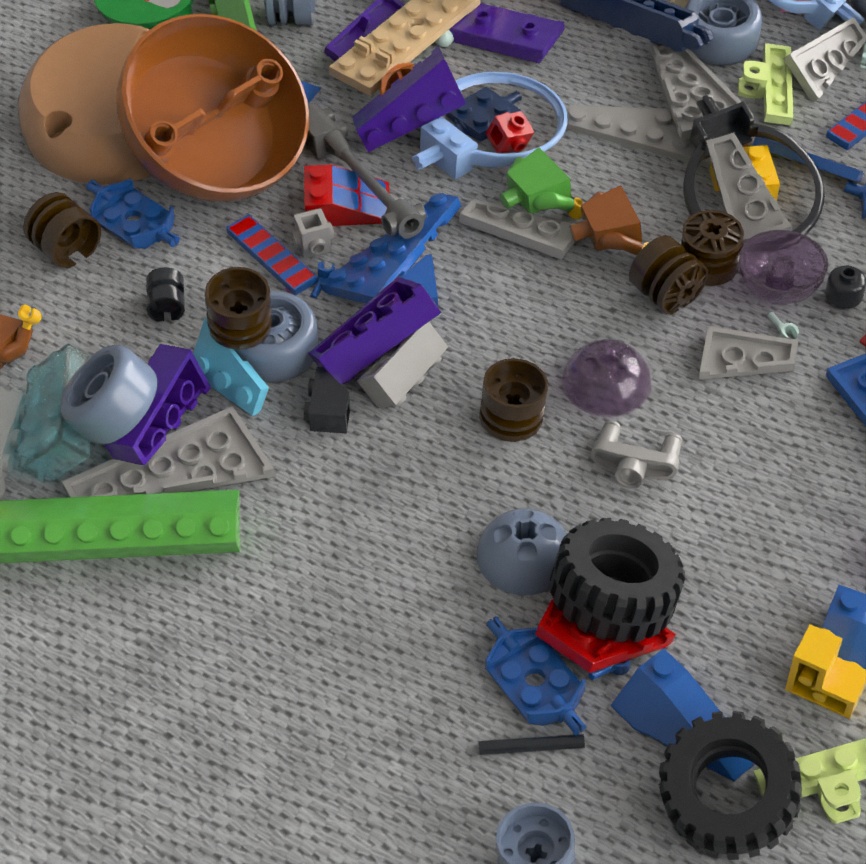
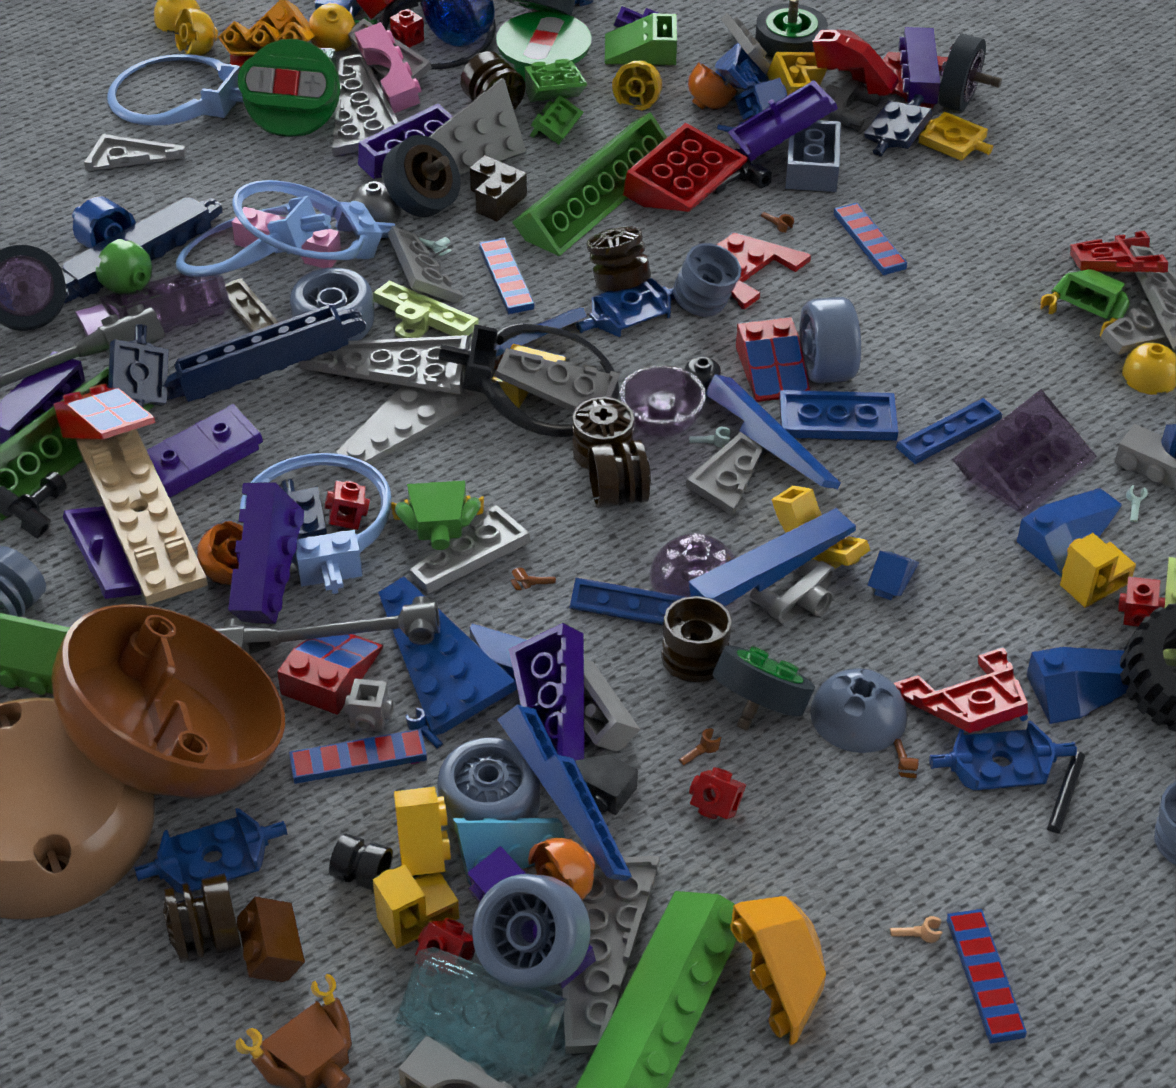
camera: 65 degrees left, 5 degrees down
(67, 275) = (270, 939): none -> reddish brown piece
(129, 325) = (409, 904): none -> yellow brick
(183, 305) = (419, 830): none -> yellow brick
(200, 580) = (784, 959): none -> light orange brick
(204, 404) = (566, 862): none -> orange cylinder
(238, 308) = (483, 779): dark brown wheel -> none
(282, 375) = (566, 787): none -> blue slope
(282, 745) = (986, 976): none -> tile
(303, 678) = (921, 931): none -> light nougat hand
(357, 481) = (716, 793): none -> red brick
(421, 453) = (706, 745): none -> dark orange hand
(484, 606) = (904, 762): none -> dark orange hand
(488, 459) = (762, 682): none -> black wheel
(518, 269) = (521, 576): none -> dark orange hand
(537, 346) = (621, 601): none -> blue tile
(609, 606) = (949, 650): black tyre -> none
(610, 222) = (526, 483): dark orange torso -> none
(638, 414) = (773, 559): none -> slope
(706, 514) = (891, 574): none -> blue slope
(711, 435) = (799, 506): none -> yellow arch
(810, 727) = (1140, 600): none -> red brick
(812, 360) = (767, 431): none -> blue slope

